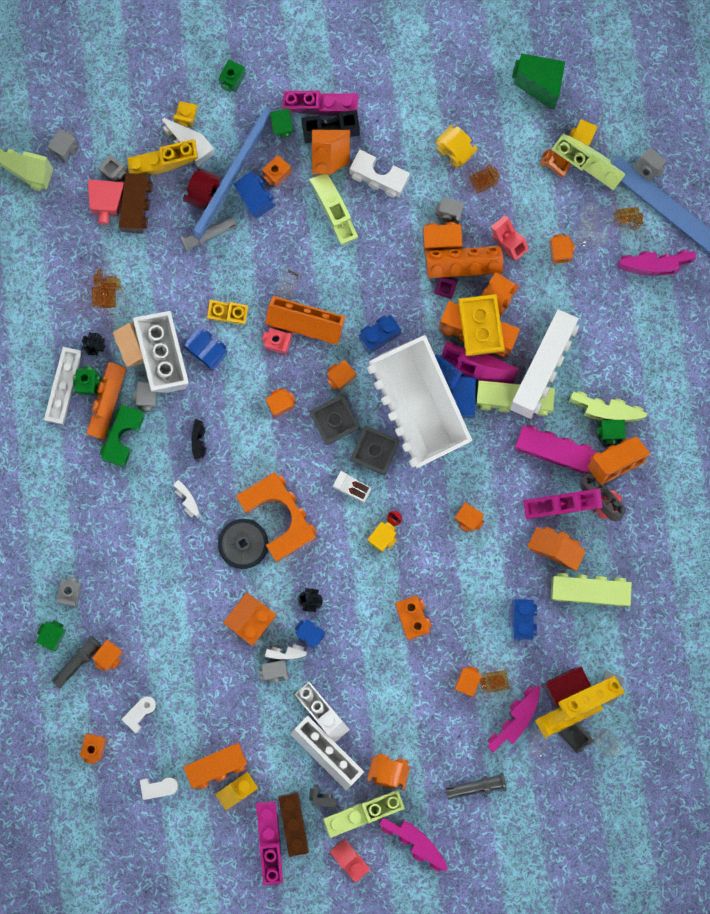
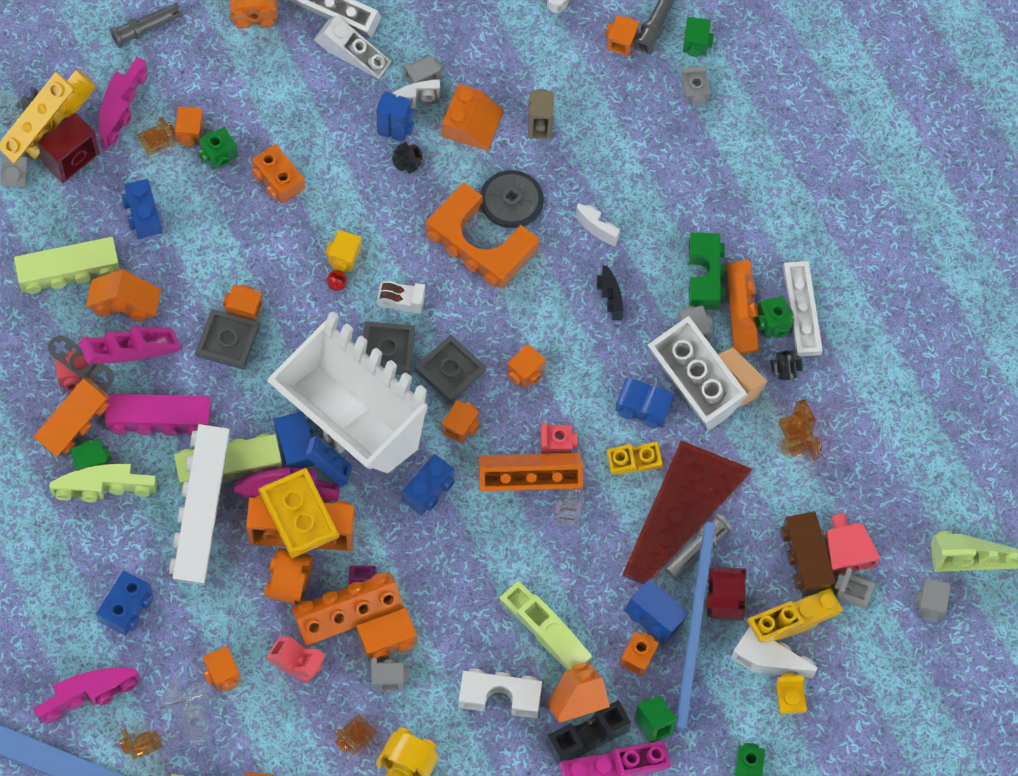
camera: 160 degrees right, 15 degrees down
(197, 600) = (540, 114): none -> dark tan brick
(203, 269) = (687, 498): none -> clear red wing
(445, 653) = (217, 148): none -> green brick
(488, 494) = (227, 339): none -> dark grey plate
(614, 317) = (125, 603): none -> blue brick

